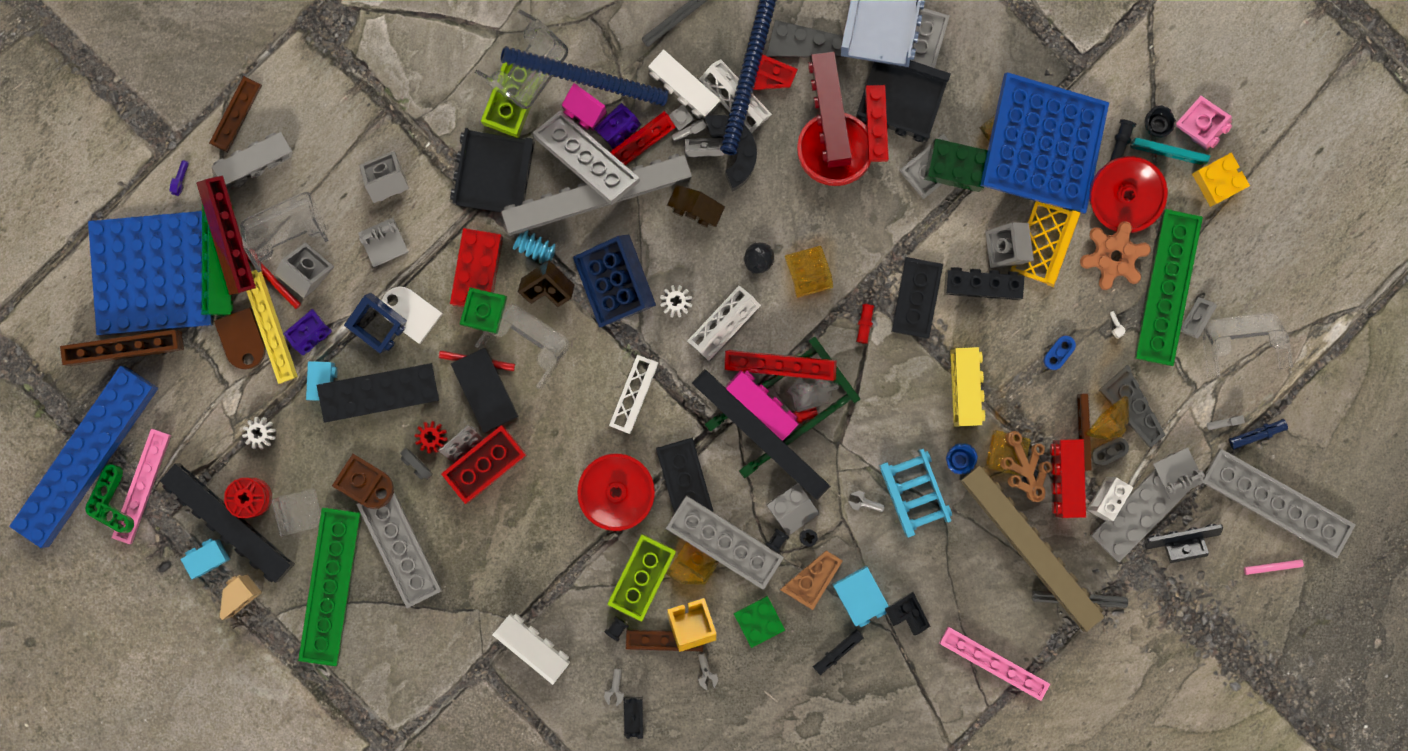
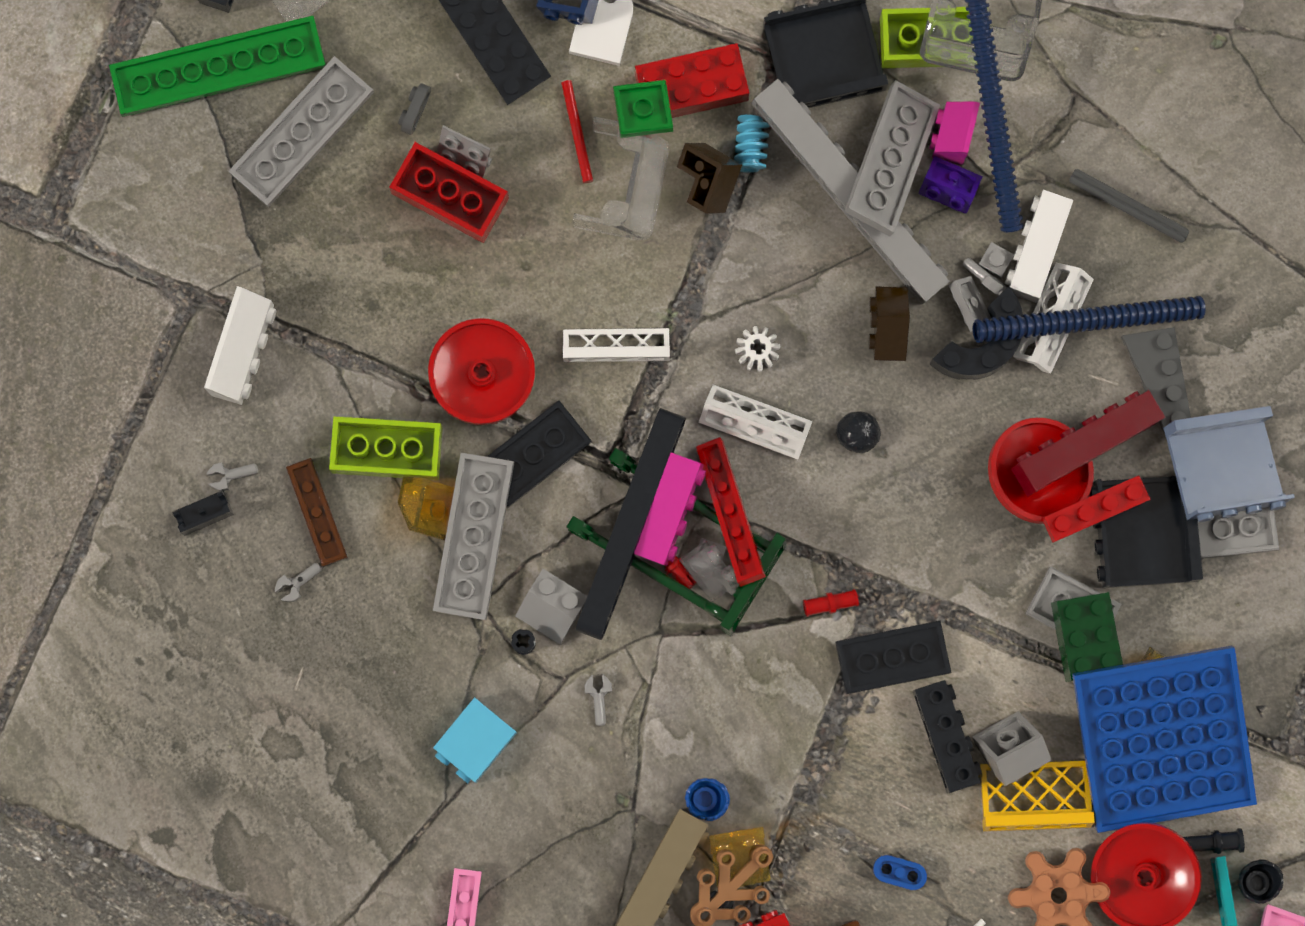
camera: 70 degrees right, 5 degrees down
(363, 482) = (365, 53): reddish brown tile -> none
(435, 432) = (466, 110): red gear -> none
(484, 390) = (544, 155): black tile -> none
(614, 280) = (751, 260): dark blue slope -> none
(616, 628) = (307, 444): black bush -> none
(643, 138) = (947, 222): red plate -> none
(693, 627) = (346, 538): yellow piece -> none
(759, 621) = (389, 623): green plate -> none
(774, 74) = (1102, 353): red wing -> none
(777, 540) = (503, 603): black bush -> none
(809, 271) = (867, 503): clear yellow bracket -> none
(813, 580) = (470, 671): medium nougat wing -> none
(840, 650) = (394, 743): black pin -> none
(903, 507) = (613, 750): medium azure fence -> none
(910, 610) = (482, 812): black plate -> none
(967, 386) = (802, 765): light yellow brick -> none

